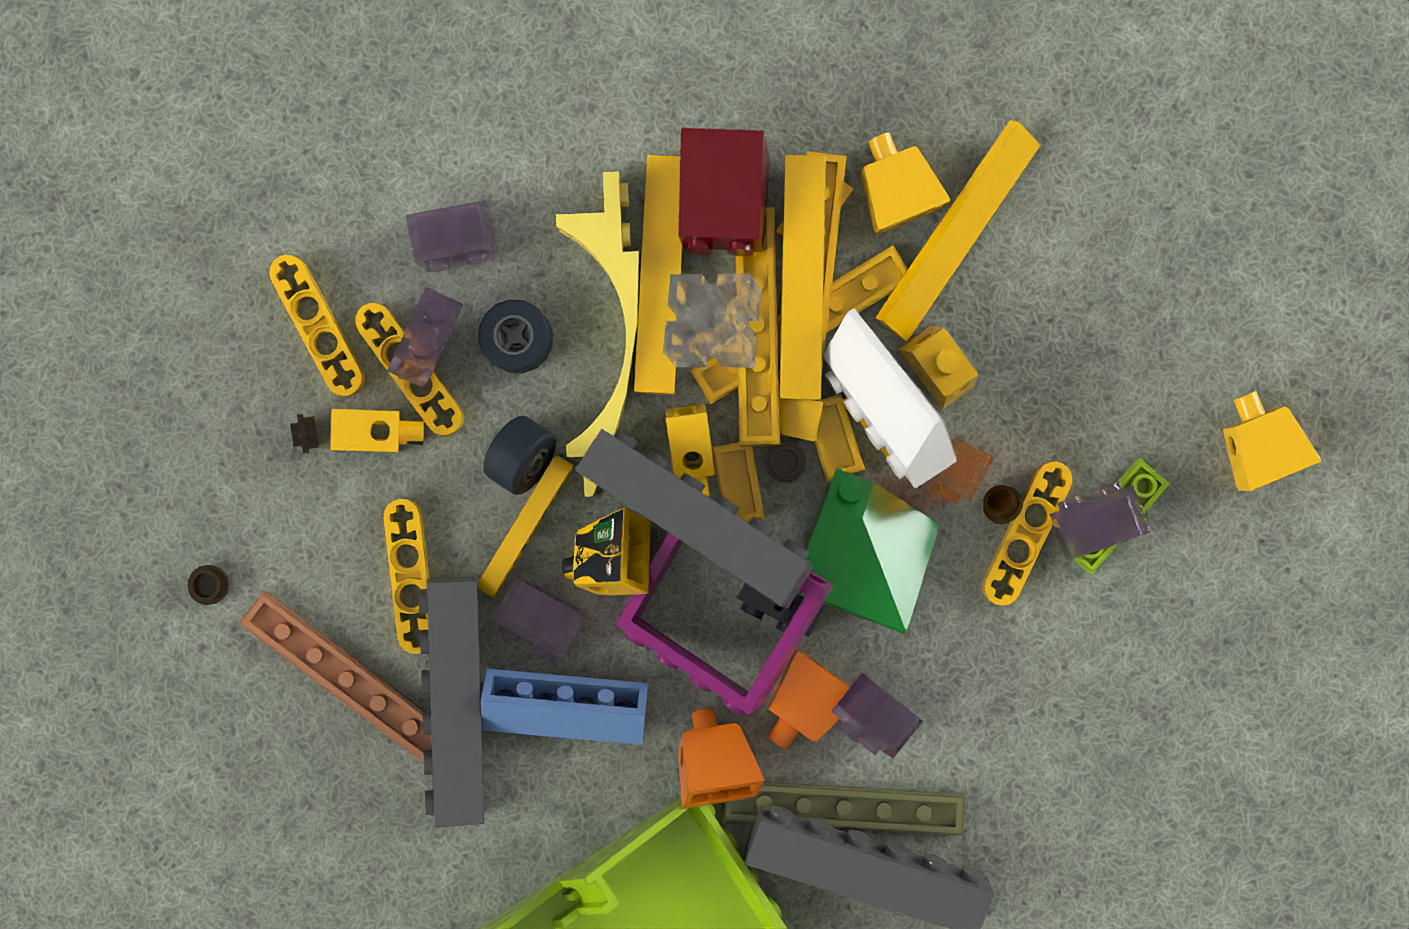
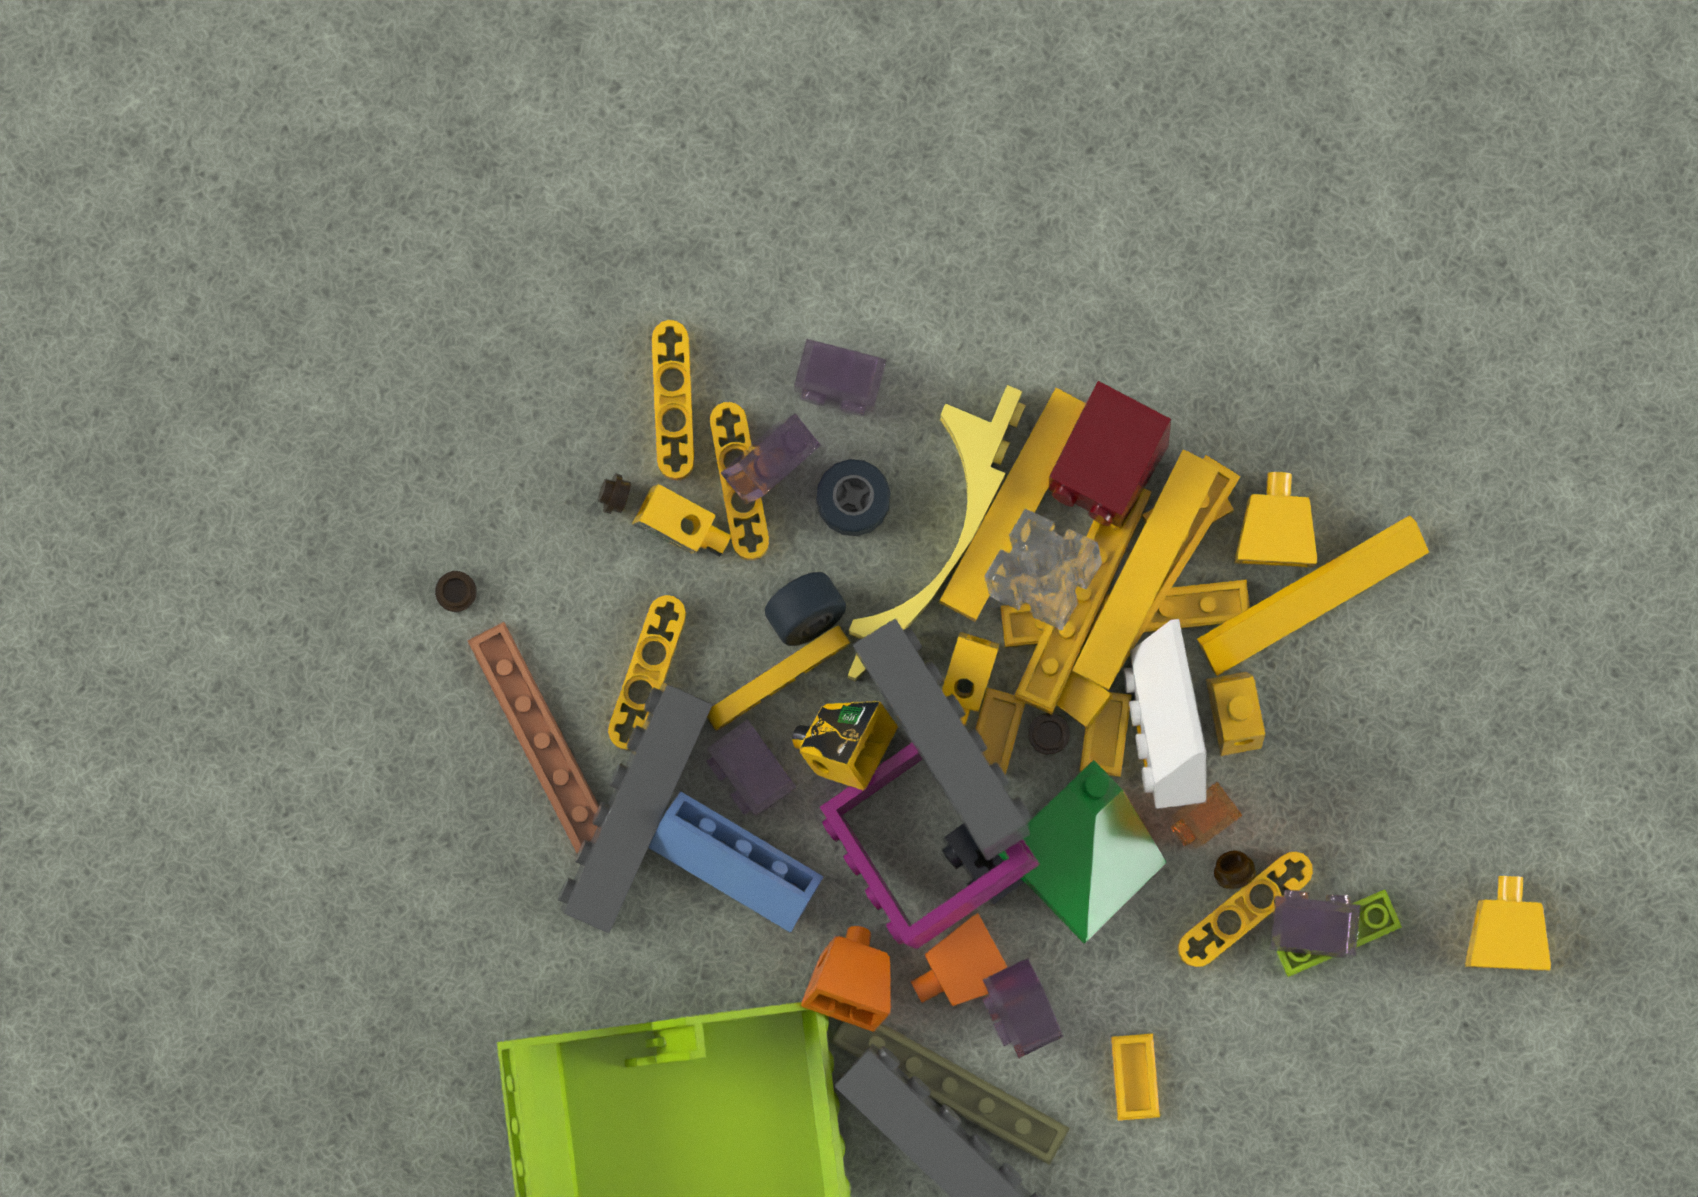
camera: 30 degrees right, 5 degrees down
(1000, 723) = (1135, 1077): none -> yellow tile

